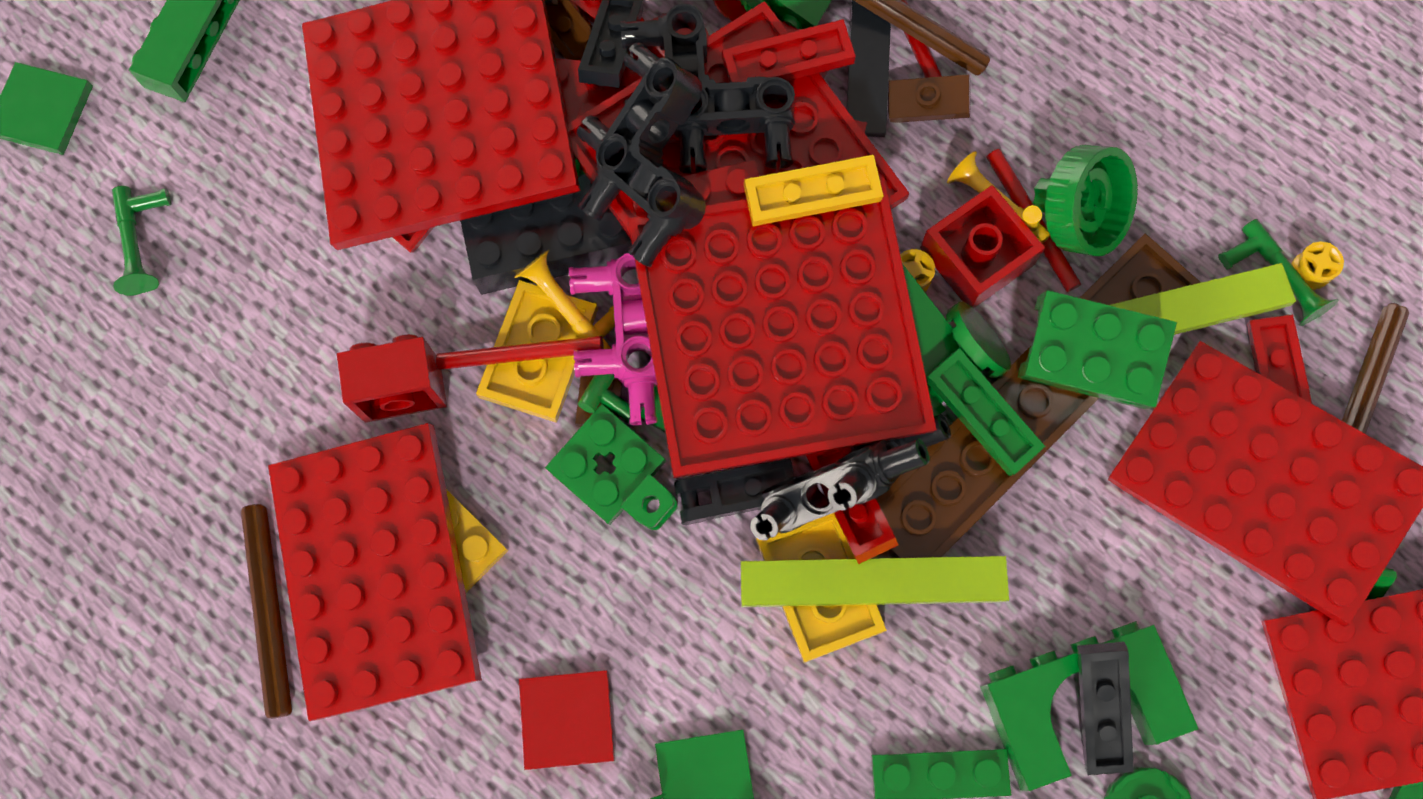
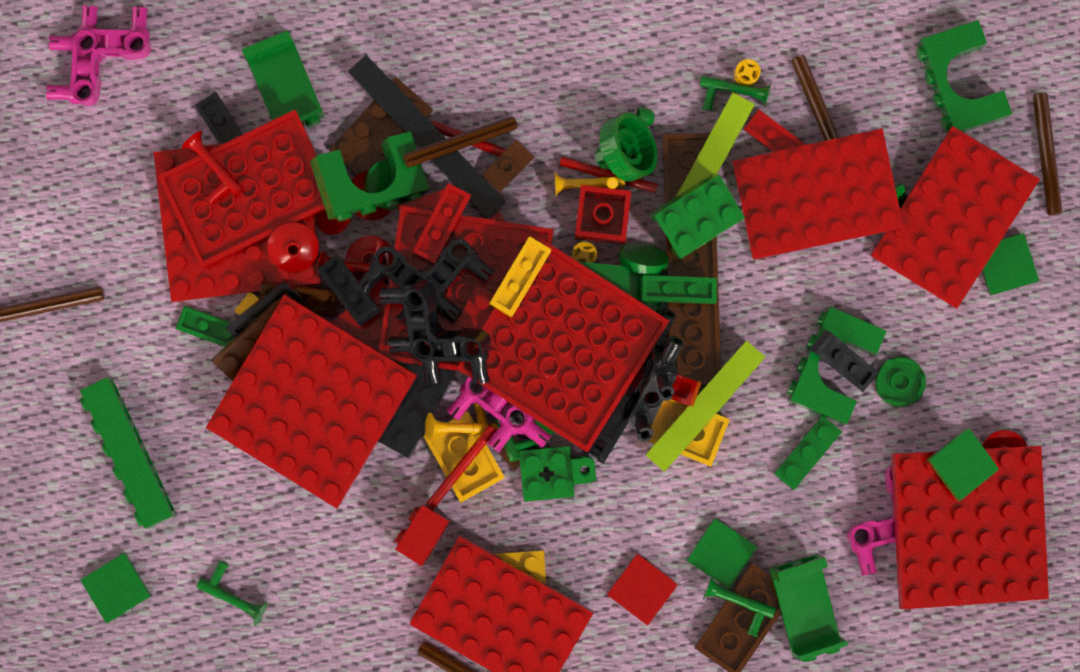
camera: 50 degrees left, 10 degrees up
(1146, 199) = (646, 115): none -> green hinge

